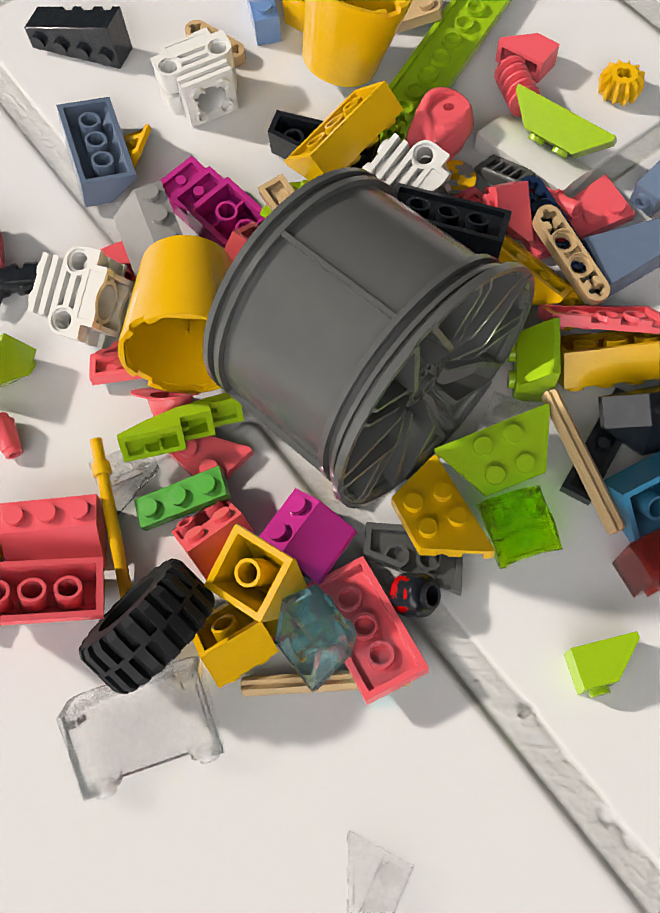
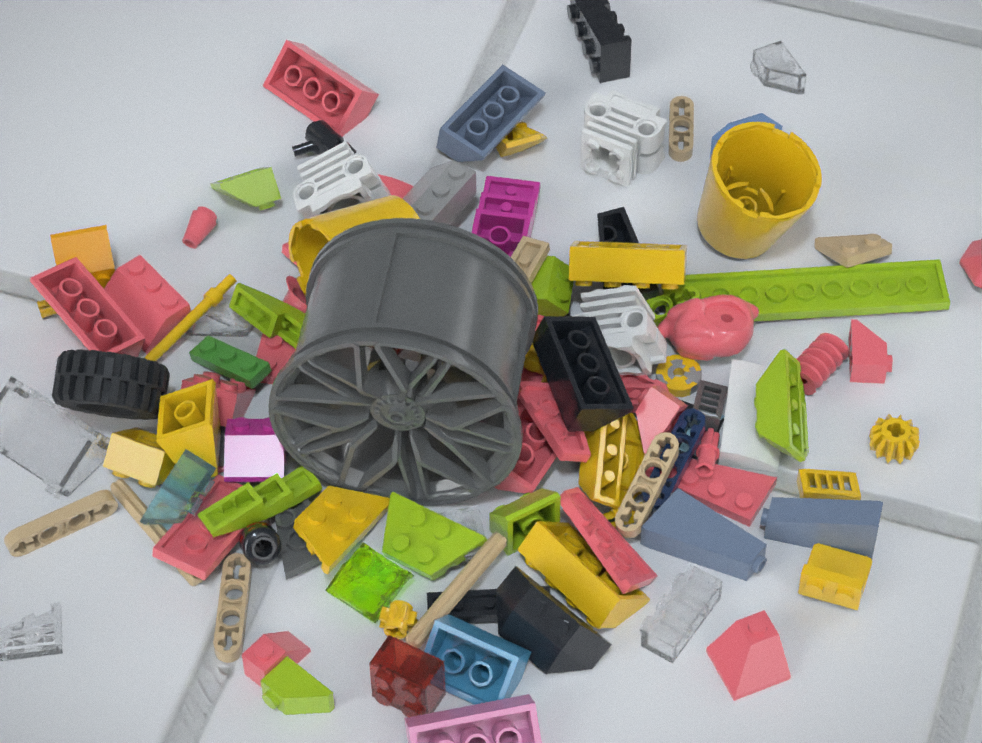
camera: 50 degrees right, 15 degrees down
(253, 773) = (89, 511): none -> tan beam
(372, 569) = (259, 502): none -> lime slope
(466, 657) = (232, 607): none -> tan beam
(550, 658) = (269, 652): none -> coral slope
(576, 526) = (397, 619): none -> yellow gear
(631, 154) = (810, 477): none -> yellow slope

